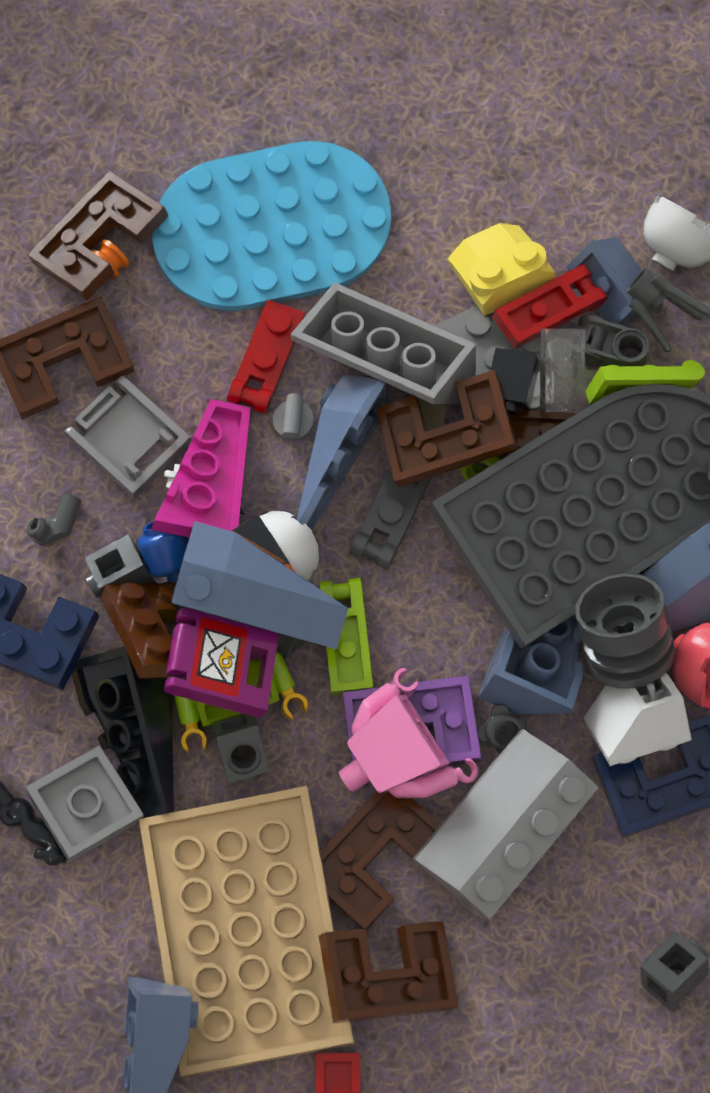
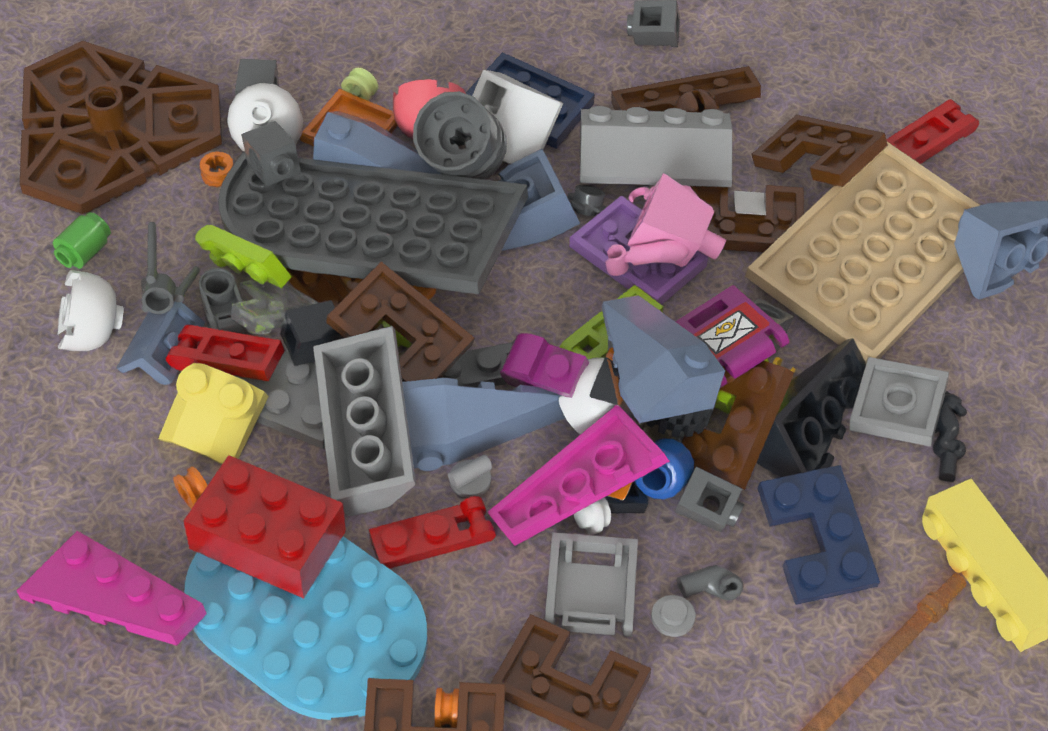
camera: 130 degrees left, 20 degrees down
(52, 471) = (673, 615): none -> light grey plate
(329, 512) = (543, 365): none -> magenta brick
(348, 220) = (265, 526): none -> red brick
(388, 870) = (749, 202): none -> white sticker
(397, 102) = (112, 589): none -> dark pink wing
(444, 213) = (190, 486): none -> orange bush
(556, 923) = (692, 92): none -> reddish brown plate

